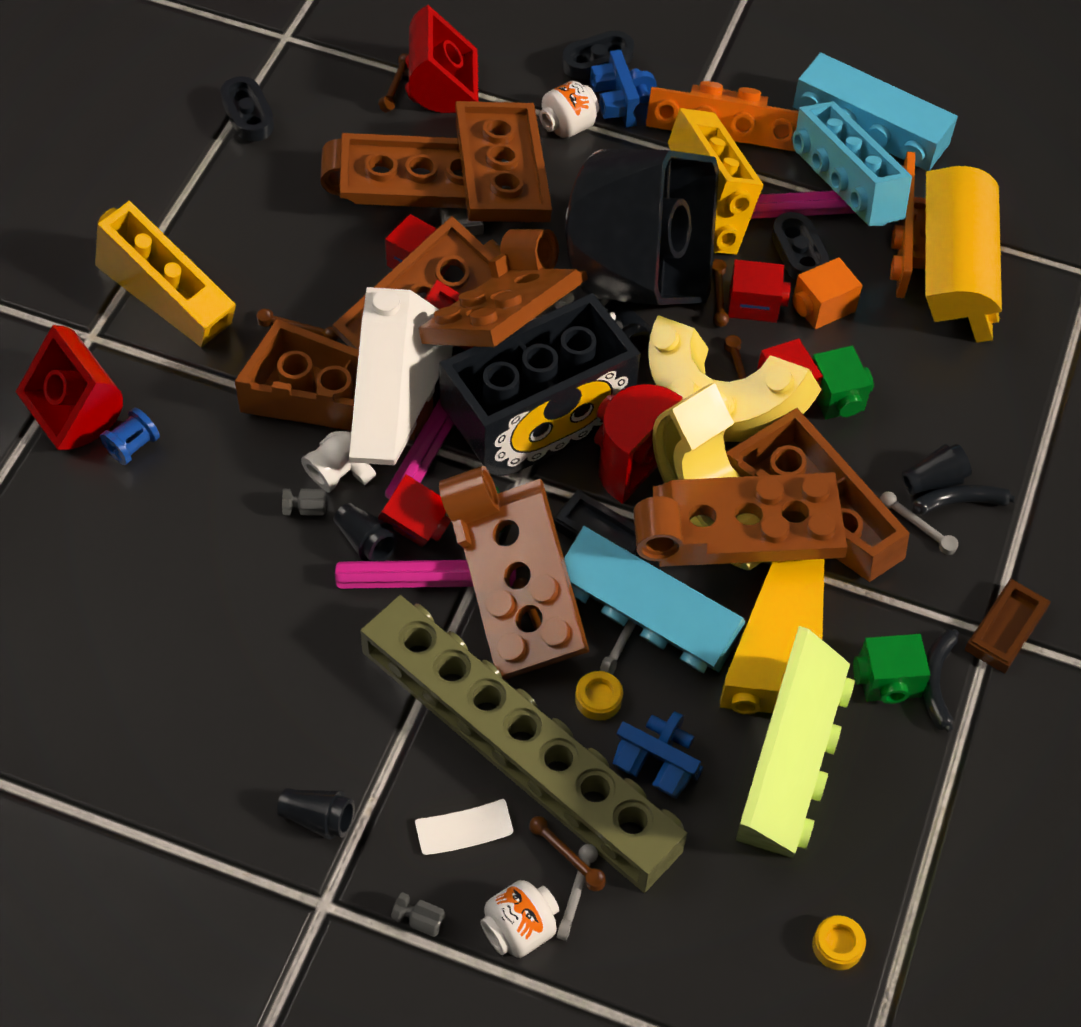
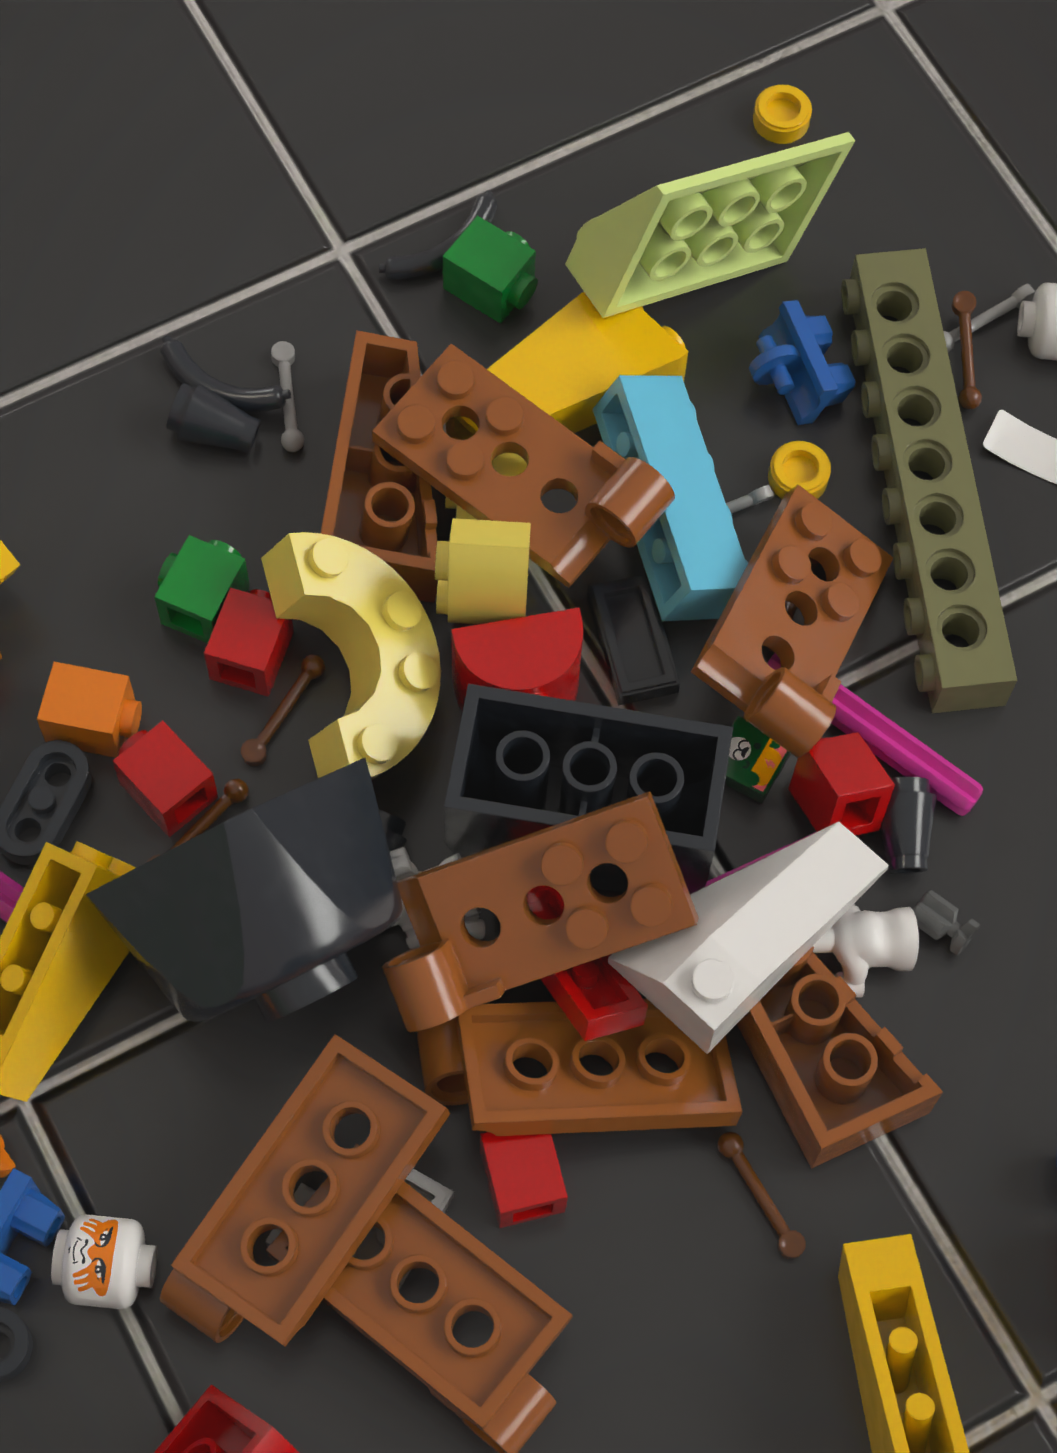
camera: 140 degrees left, 10 degrees up
(1007, 626) = (321, 237): reddish brown tile -> none

